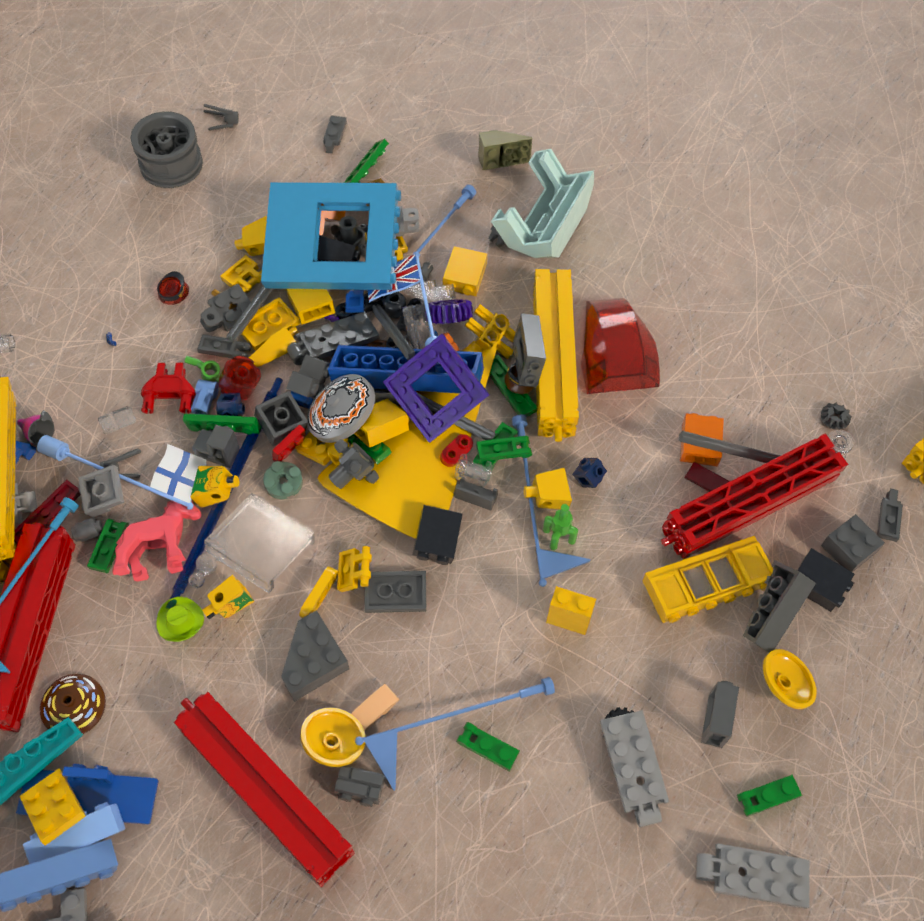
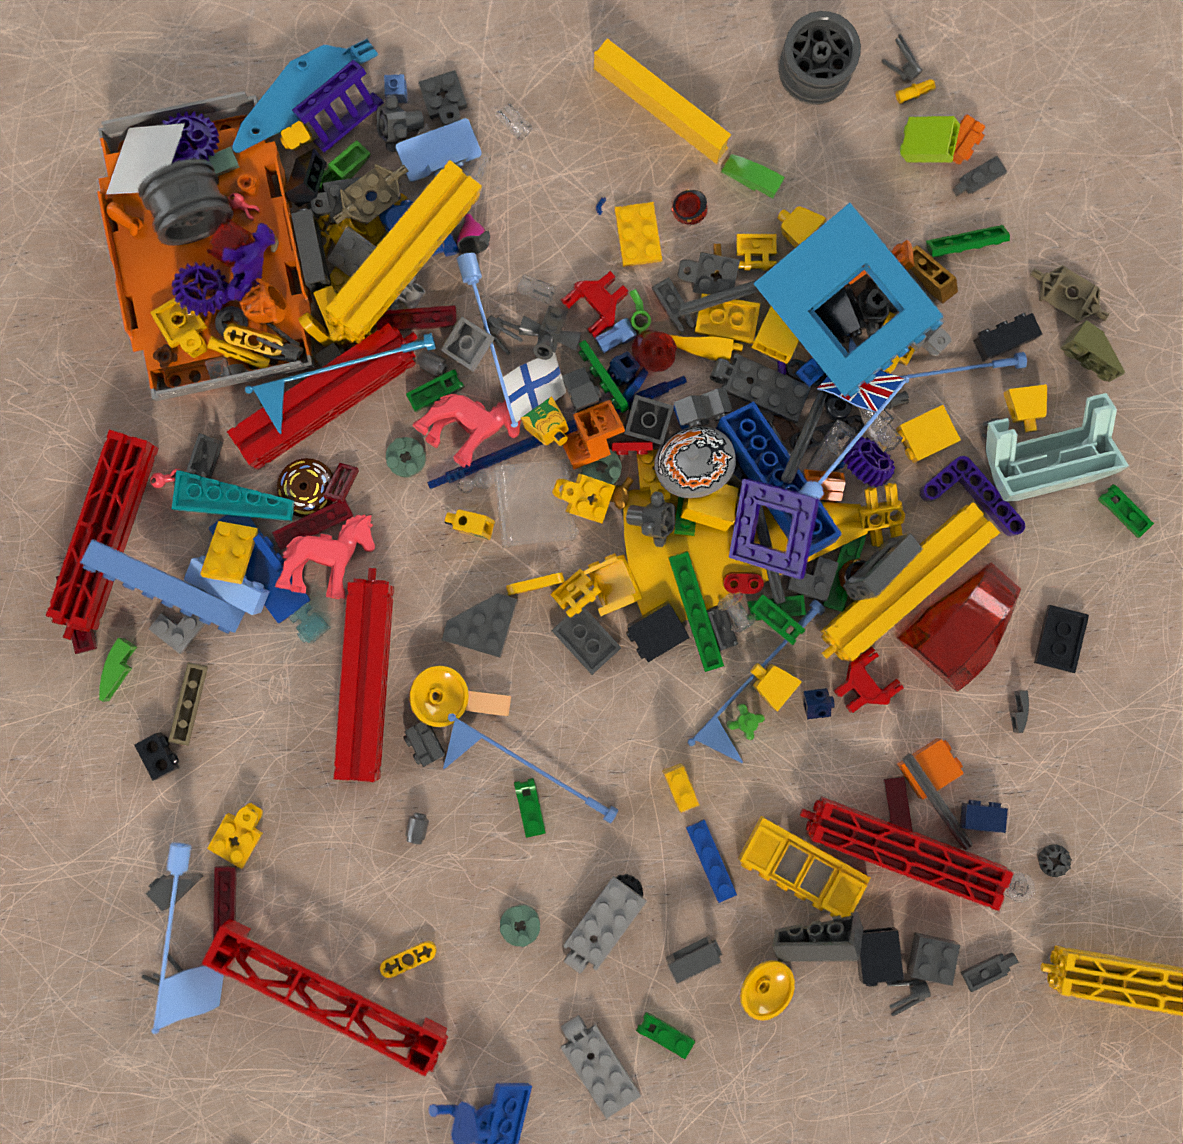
camera: 50 degrees right, 25 degrees up
(88, 248) = (661, 100): none -> yellow tile
(103, 723) = (313, 523): none -> dark red plate
(104, 667) = (343, 485): none -> dark red tile
(130, 597) = (401, 446): none -> sand green plate
(136, 728) = (327, 553): none -> coral animal
(154, 332) = (638, 234): none -> yellow plate
(155, 432) = (550, 333): none -> dark grey brick
(179, 797) = (311, 627): none -> clear light blue brick
(180, 621) = (427, 504): lime hat -> none
(195, 239) = (753, 175): none -> bright green slope
(245, 125) = (915, 90): none -> yellow axle
(249, 408) = (635, 385): none -> blue tile
(252, 460) = (593, 427): none -> orange bracket
(281, 501) = (578, 492): none -> yellow plate
(282, 134) = (930, 139): none -> lime brick
(302, 123) = (969, 134): none -> orange brick
(313, 482) = (620, 493): none -> pearl gold rock
(374, 532) = (614, 582): none -> yellow panel
(423, 855) = (416, 828): none -> flat silver brick
(442, 143) = (1054, 291): none -> dark tan plate
(446, 187) = (1007, 336): none -> black brick
(447, 496) = (696, 611): none -> green plate
(498, 200) = (1027, 405): none -> yellow torso
(499, 408) = (818, 583): none -> dark grey brick
(524, 270) = (976, 492): none -> dark purple beam
(592, 843) = (518, 913): none -> sand green plate
(603, 435) = (864, 685): none -> red connector
(622, 207) = (1126, 511): none -> green plate
(649, 642) = (711, 861): none -> blue plate
(676, 299) = (1061, 639): none -> black plate
(711, 359) = (1020, 717): none -> dark grey slope
(766, 431) = (984, 817): none -> dark blue brick
(872, 576) = (919, 993): none -> dark grey plant

